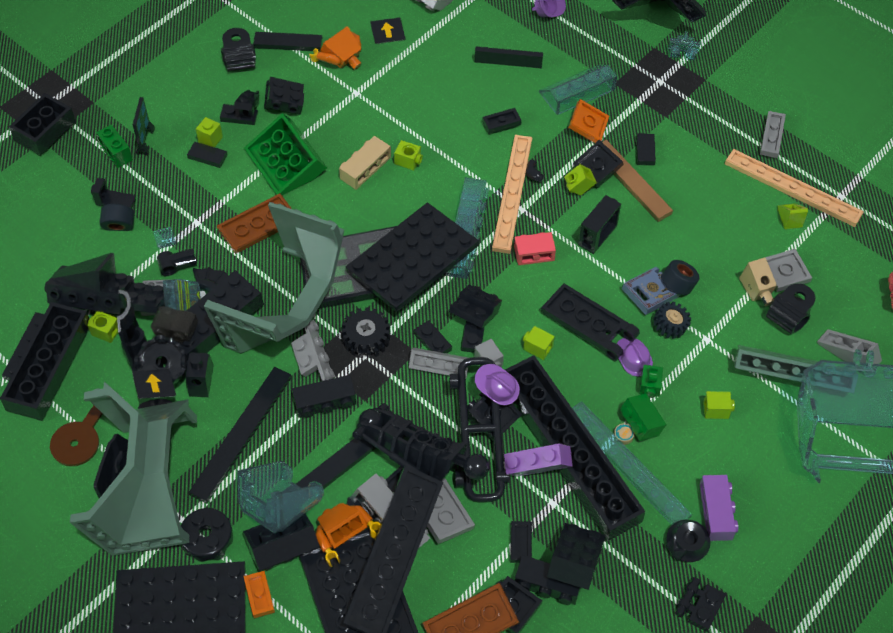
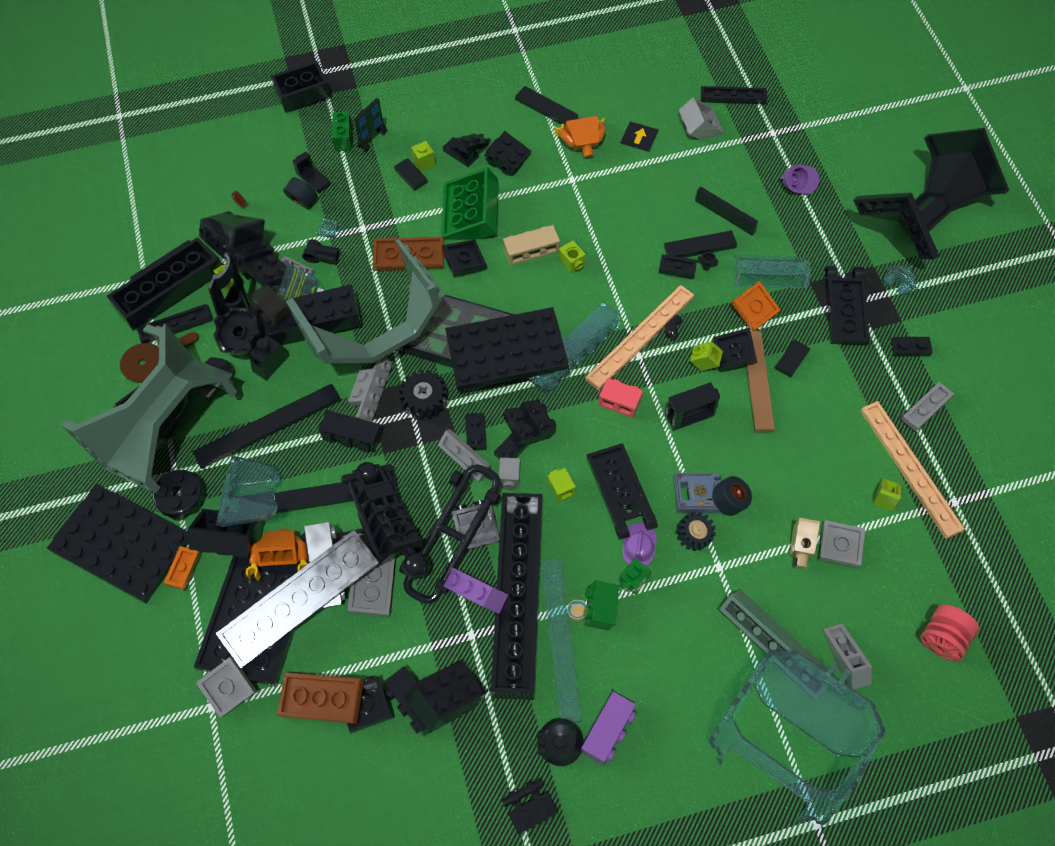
camera: 35 degrees right, 5 degrees up
(58, 252) = (239, 200): none -> clear red tile
(74, 398) = (179, 322): none -> black tile
(153, 383) = (217, 346): black sticker -> none
(208, 278) = (336, 278): black arm -> none
(240, 53) = (493, 98): black piece -> none
(312, 200) = (464, 257): none -> black tile
(497, 384) = (488, 502): medium lavender piece -> none
(507, 94) = (701, 244): none -> black tile
(520, 540) = (418, 652): black tile -> none
(522, 104) = (708, 256): none -> black plate
(658, 87) = (847, 307): none -> black hinge
(718, 405) = (680, 634): lime brick -> none
(727, 95) = (911, 346): none -> black plate
(791, 311) = (818, 583): black piece -> none

